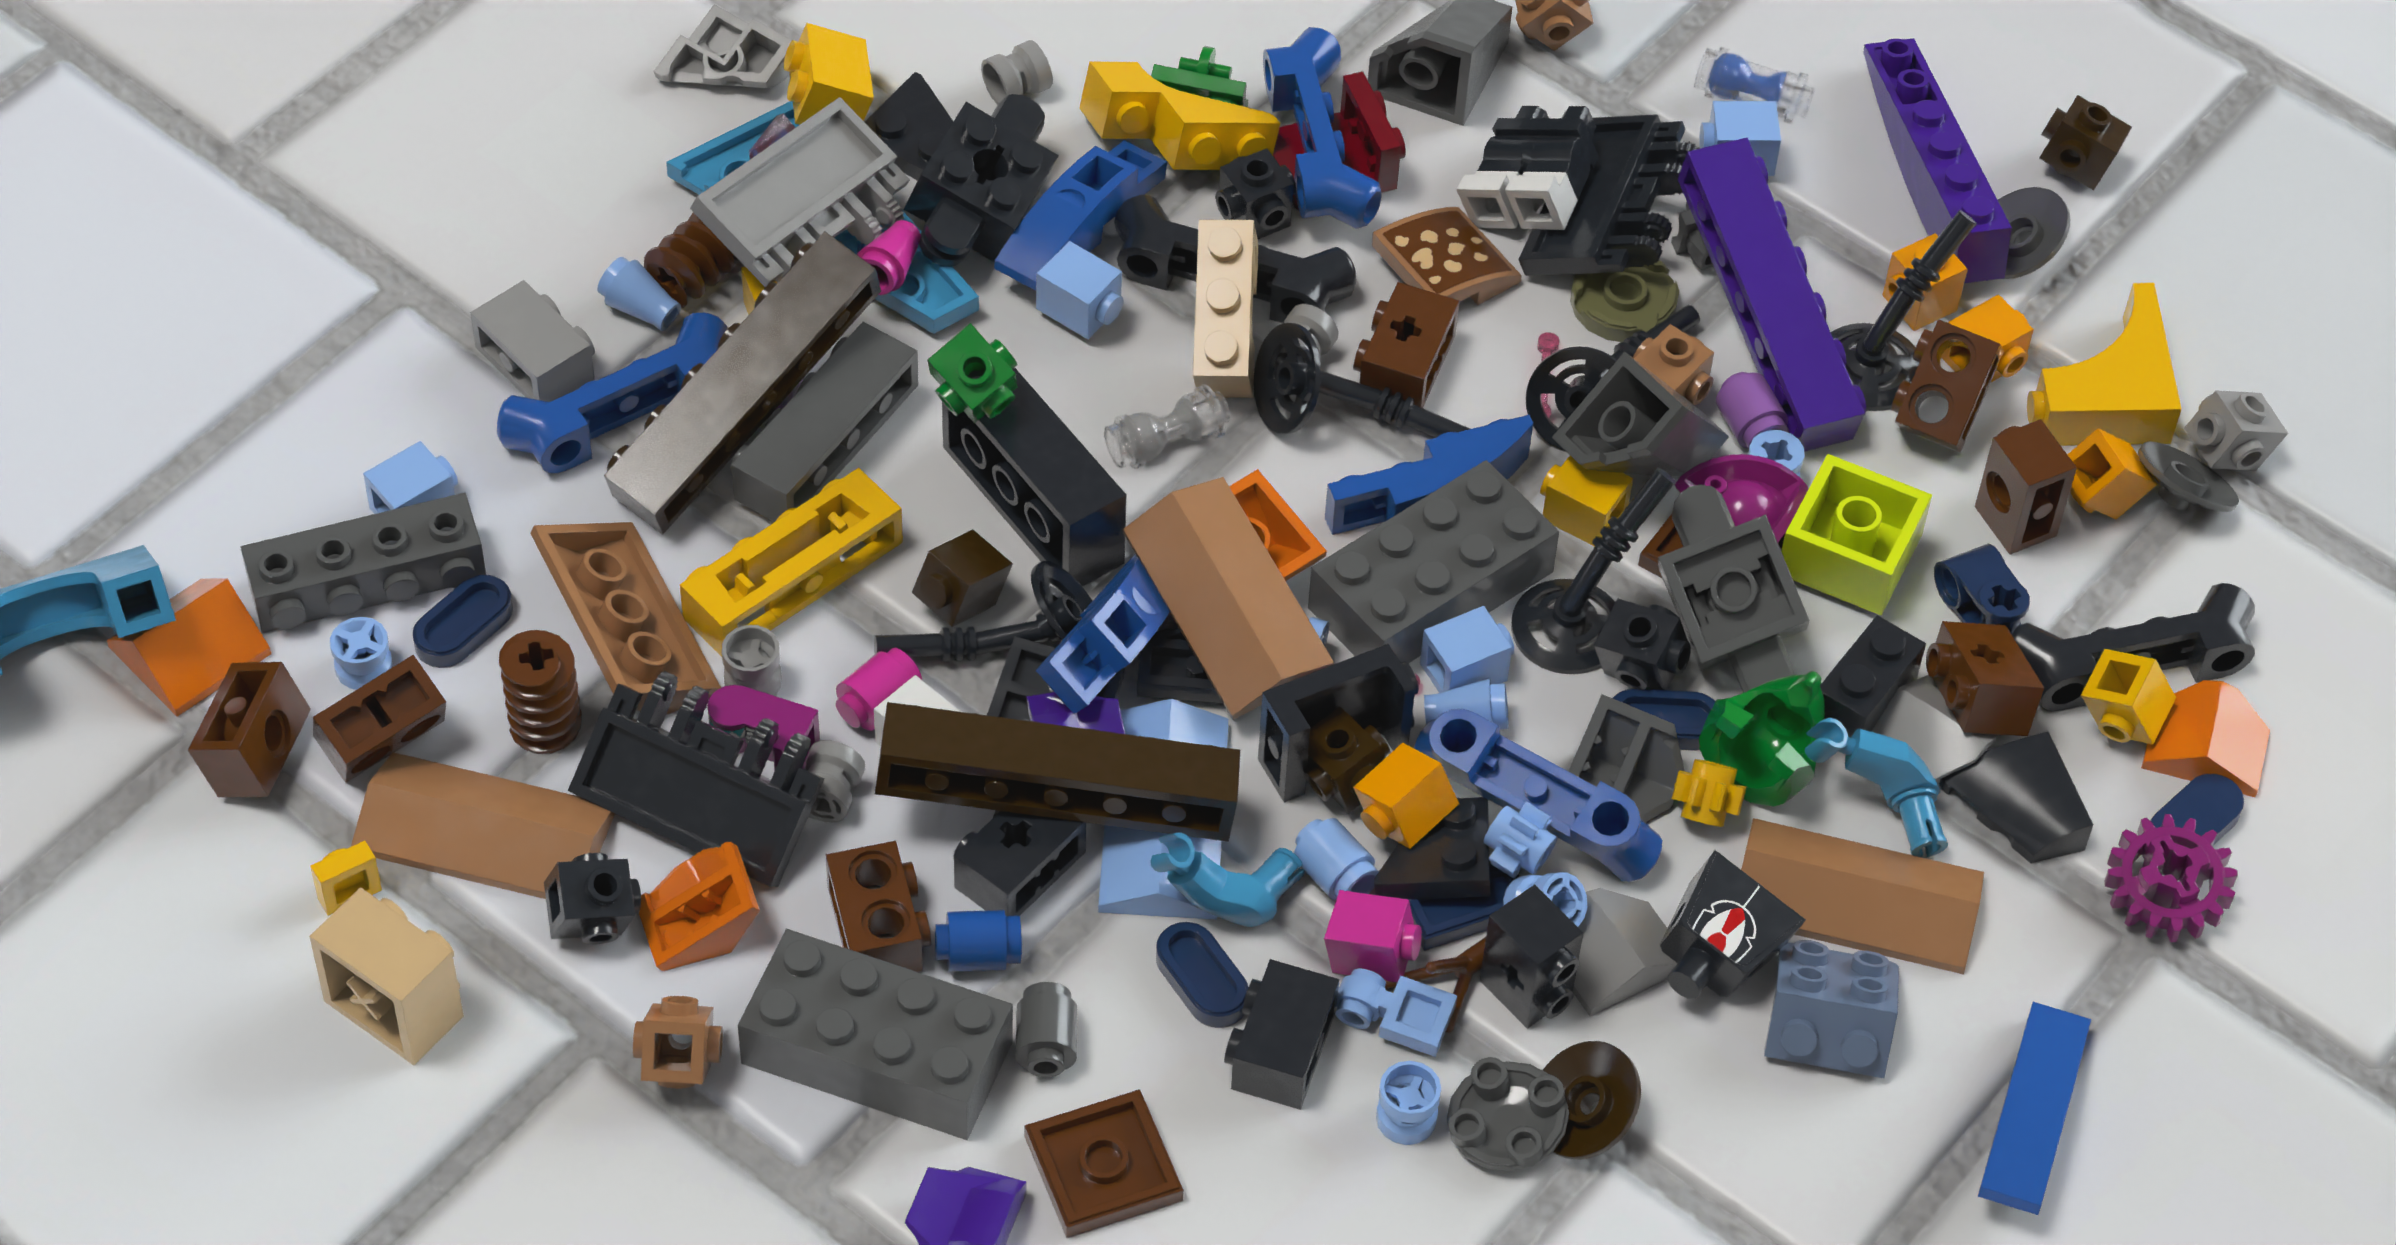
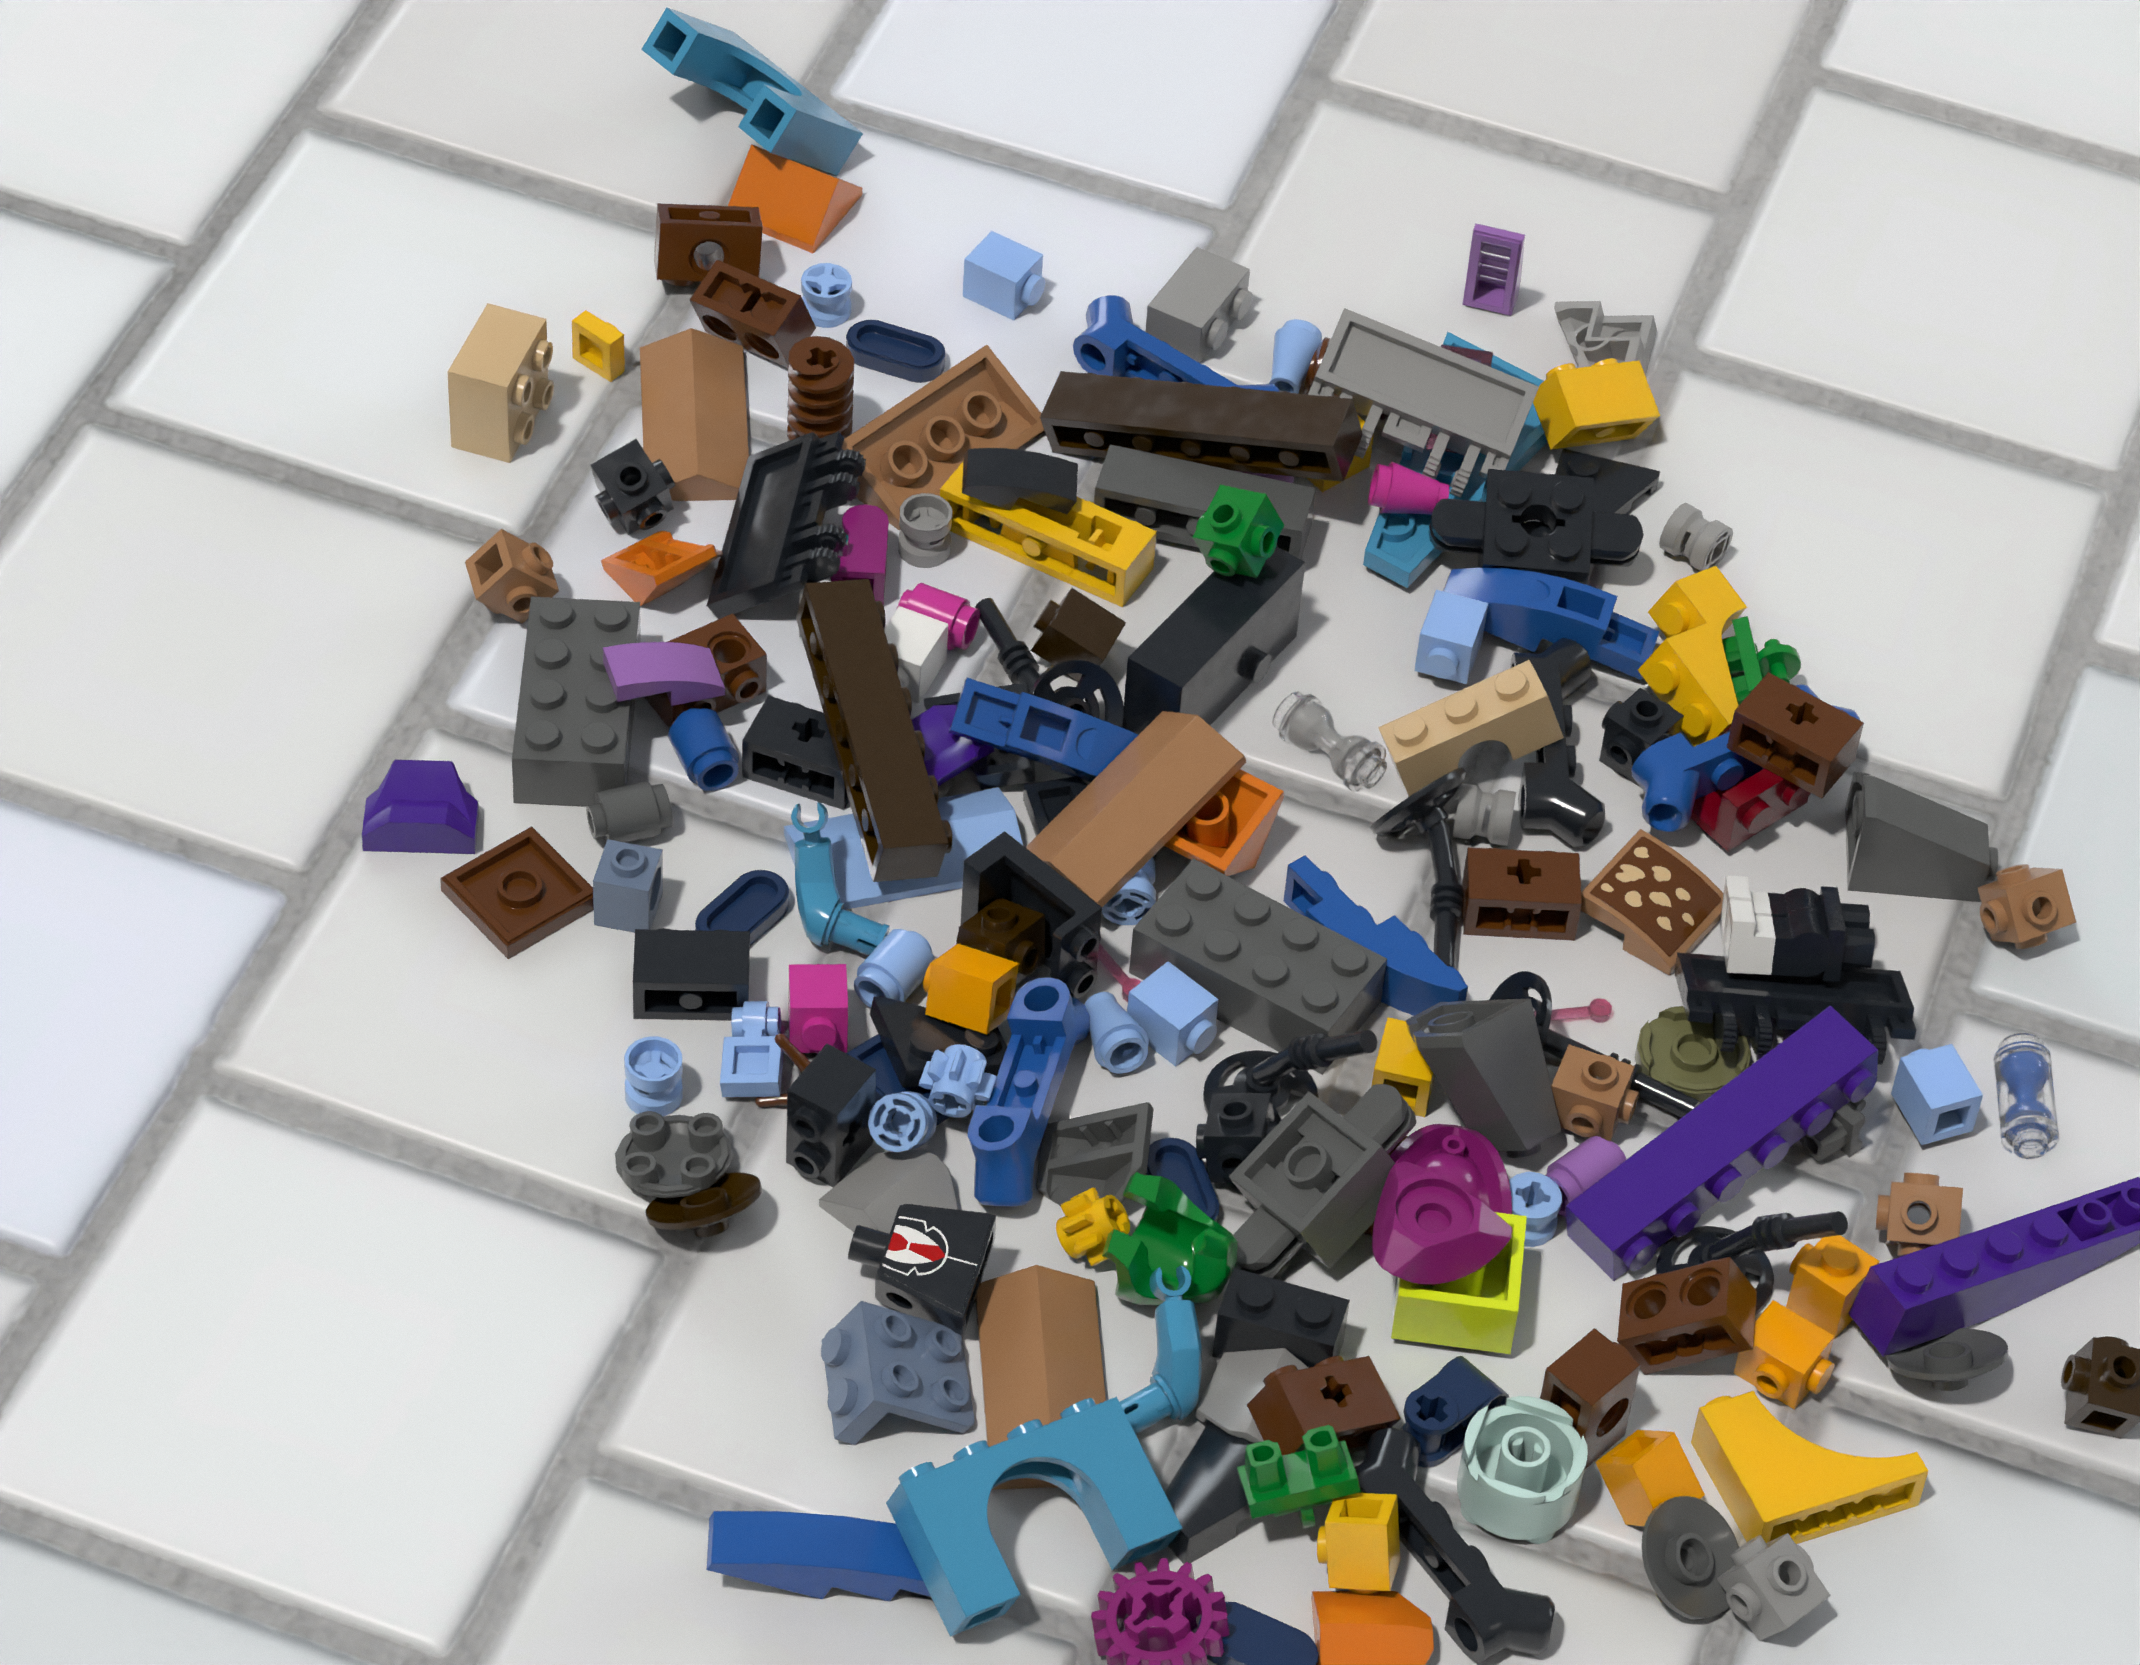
camera: 70 degrees right, 5 degrees down
(363, 562) = (916, 269): dark grey brick -> none
(611, 96) = (1489, 292): none -> medium lavender slope
(753, 550) = (1006, 474): none -> black slope
(905, 933) = (659, 667): none -> medium lavender slope
(1153, 1055) = (627, 886): none -> sand blue brick
(1352, 68) = (1795, 735): none -> reddish brown brick
(1837, 521) = (1433, 1228): none -> magenta hat
(1876, 194) = (1919, 1191): none -> medium nougat brick
(2035, 986) = (1084, 1453): none -> dark azure arch
(2067, 714) = (1298, 1479): none -> green hips
(2075, 559) = (1521, 1469): none -> light aqua brick

